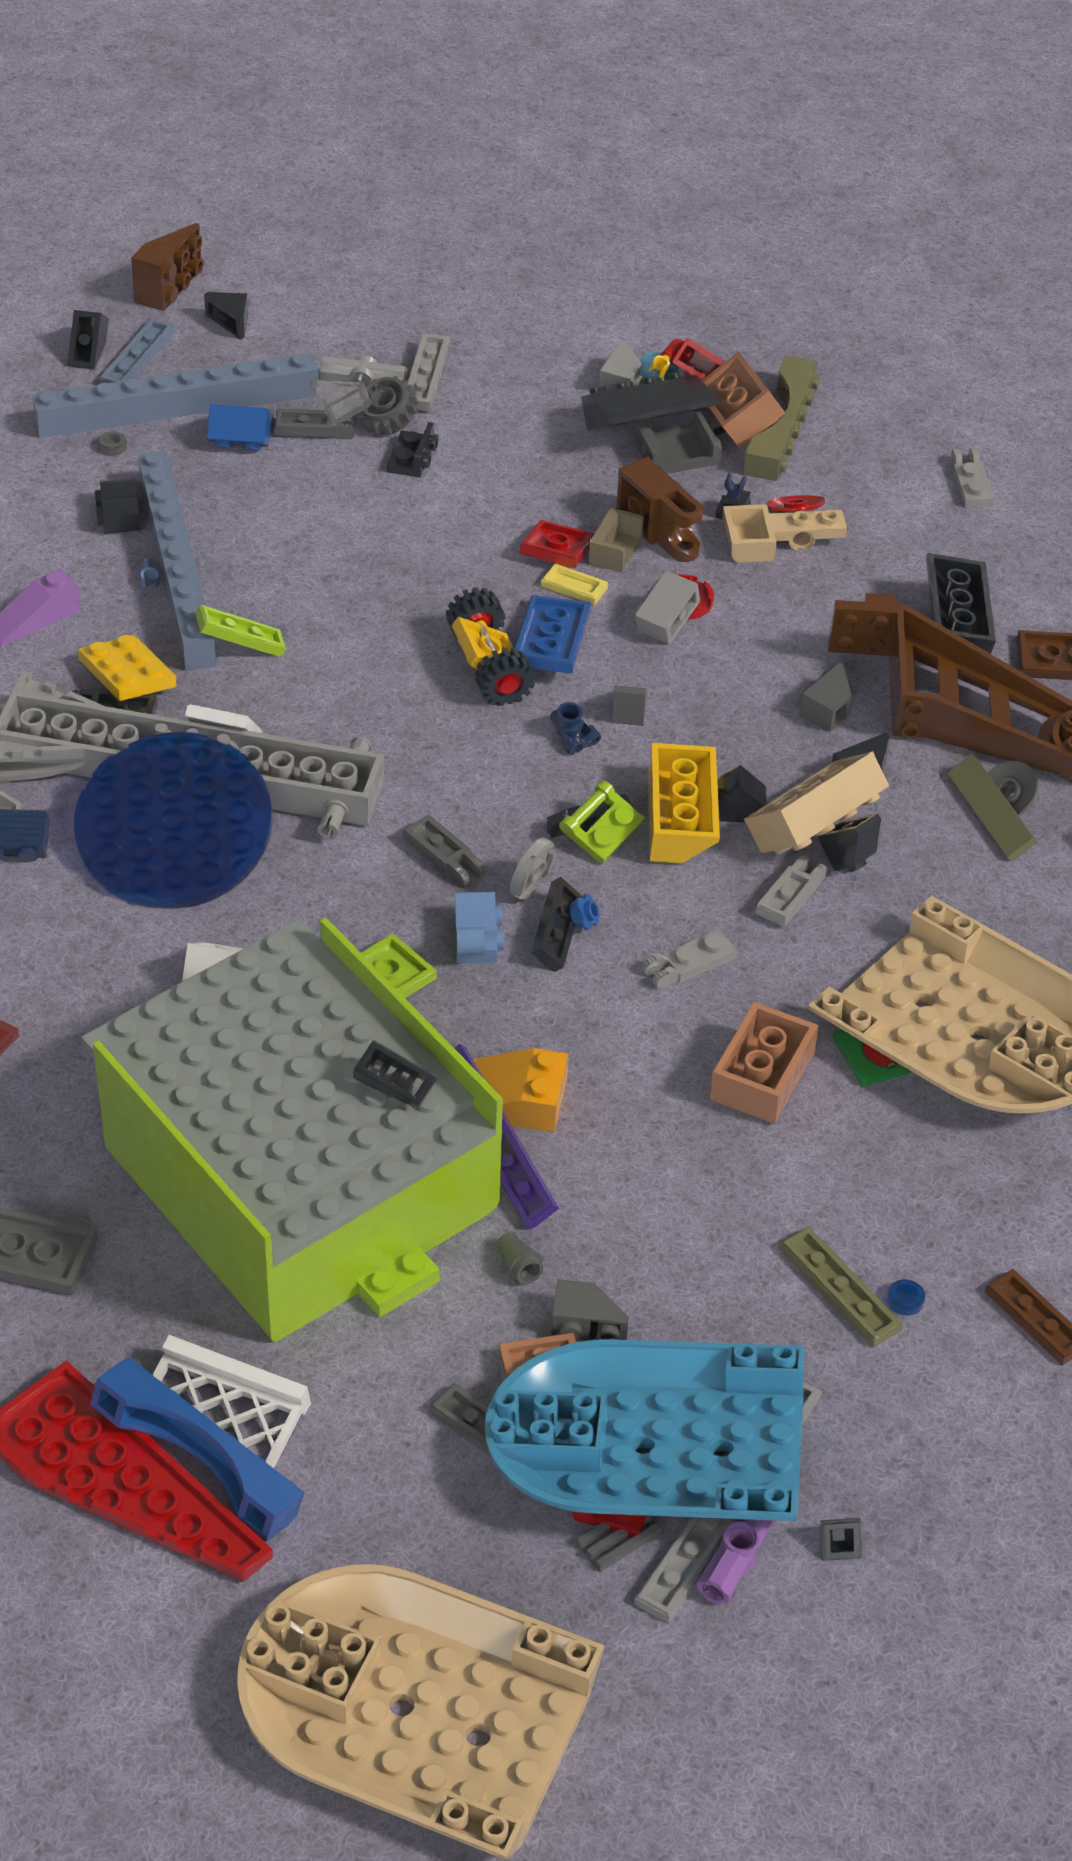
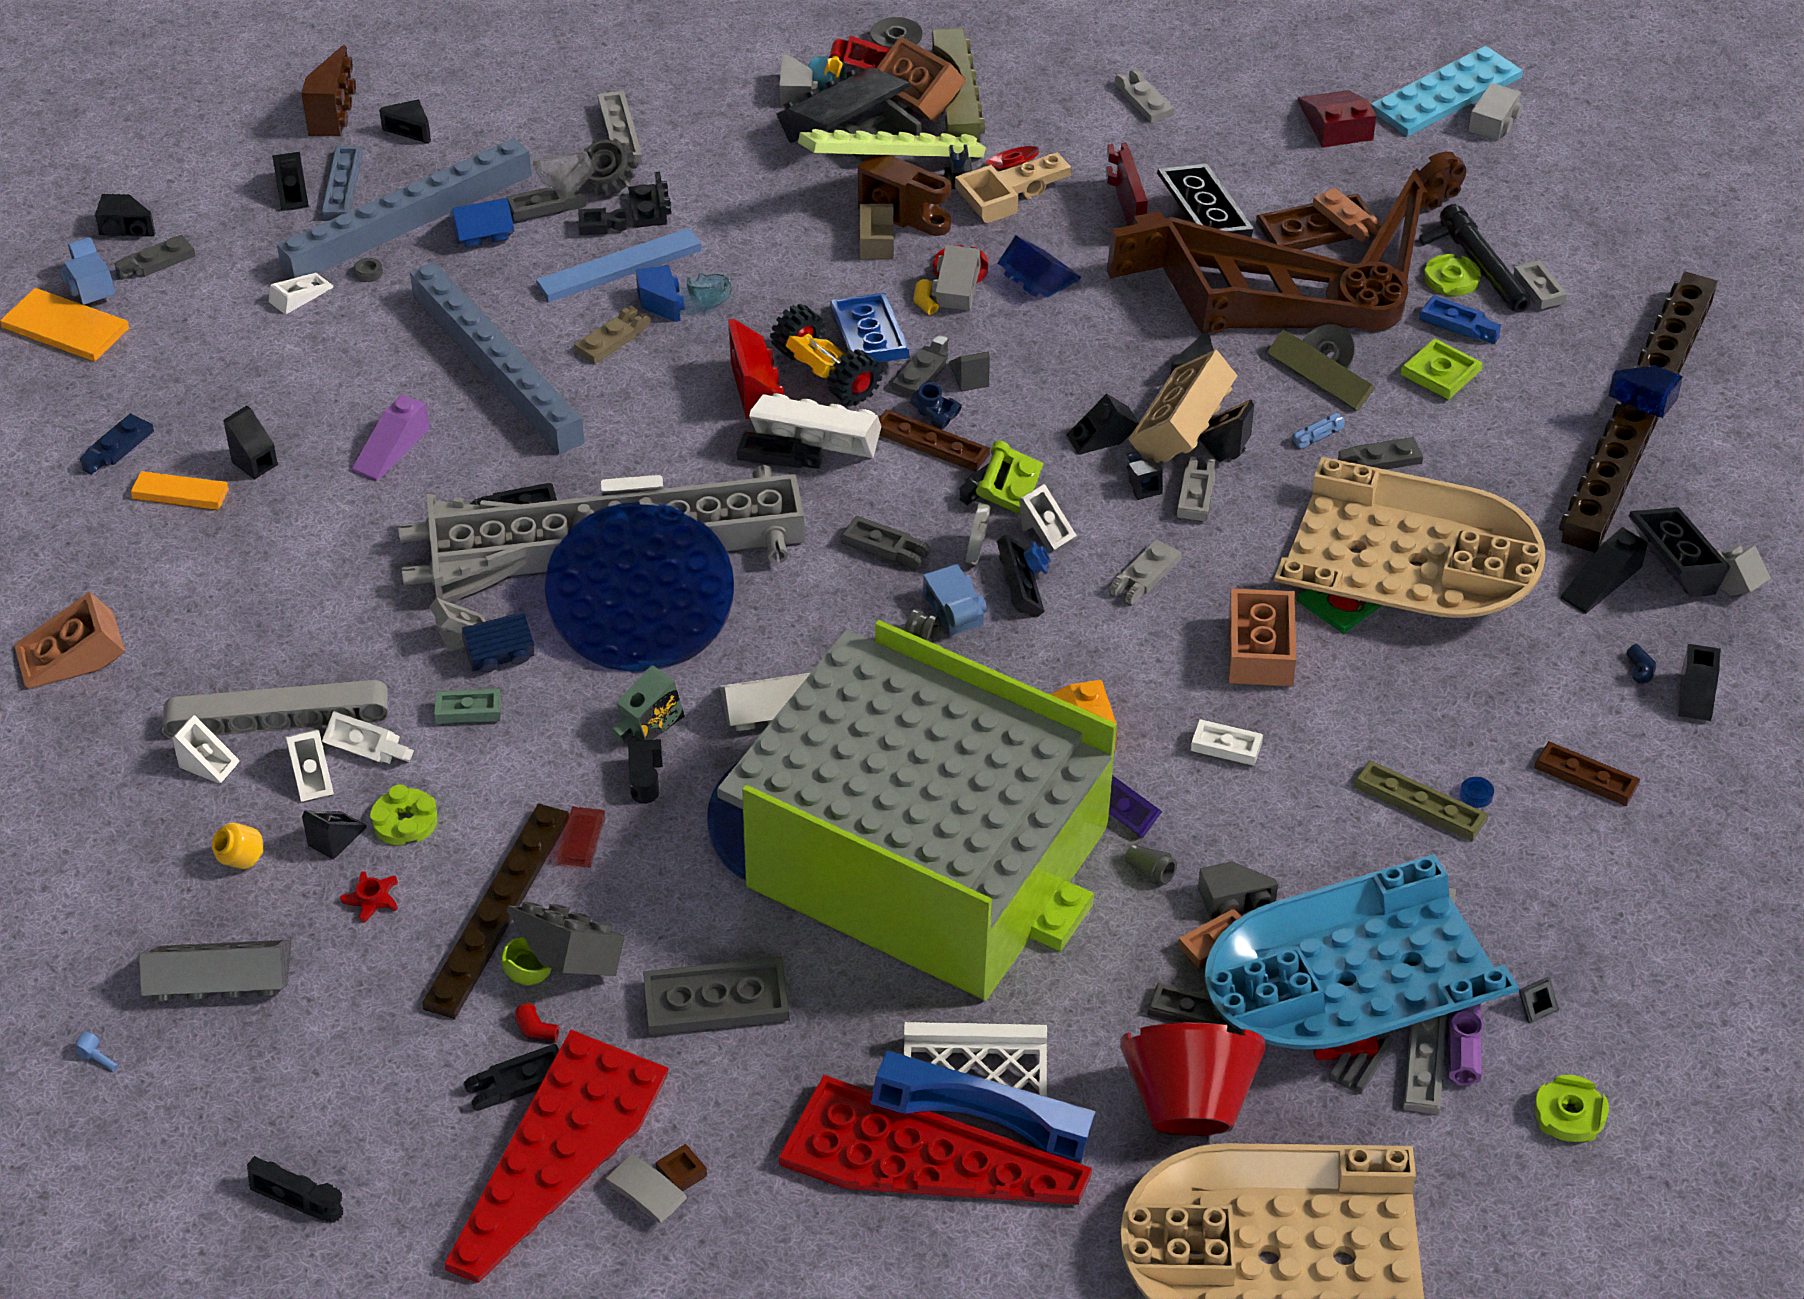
camera: 20 degrees left, 0 degrees up
(34, 445) = (297, 291): none -> white slope
(76, 999) = (643, 777): none -> black leg
(111, 941) = (648, 707): none -> sand green torso
(117, 506) = (412, 323): black brick -> none
(126, 667) = (510, 466): yellow plate -> none
(149, 573) = (475, 377): medium blue hand -> none
(240, 630) = (597, 403): lime tile -> none
(303, 569) = (612, 335): none -> dark tan hinge
(349, 503) = (618, 264): none -> medium blue tile
(353, 454) = (597, 221): none -> black plate
(362, 369) = (561, 142): light grey piece -> none
(368, 539) = (659, 291): none -> blue slope
(376, 1052) = (1005, 720): black slope -> none
(392, 728) = (778, 451): none -> black hinge
(410, 642) = (751, 365): none -> red slope
(413, 1491) = (1192, 1074): none -> red cone
(417, 552) = (709, 290): none -> clear light blue hair
(429, 945) = (923, 625): none -> dark grey wheel
(439, 712) = (818, 425): none -> white slope
(549, 760) = (933, 440): none -> reddish brown tile
(556, 543) = (826, 249): red tile -> none
(574, 584) = (859, 280): light yellow tile -> none
(588, 686) = (923, 367): none -> dark grey hinge
(614, 873) = (1043, 514): none -> light grey slope
(625, 618) = (922, 297): none -> yellow arm
(661, 454) = (888, 144): none -> yellowish green plate
(669, 1159) = (1226, 742): none -> white plate
(682, 801) = (1067, 440): yellow slope -> none
(742, 862) = (1144, 476): none -> black piece
(755, 348) = (890, 29): none -> dark grey dish
(756, 620) = (1035, 268): none -> clear blue slope
(803, 1688) = (1569, 1126): none -> lime plate
(827, 699) = (1136, 317): dark grey slope -> none
(893, 552) = (1127, 182): none -> dark red tile
(955, 868) = (1318, 430): none -> medium blue axle
(1008, 914) = (1384, 454): none -> dark grey hinge

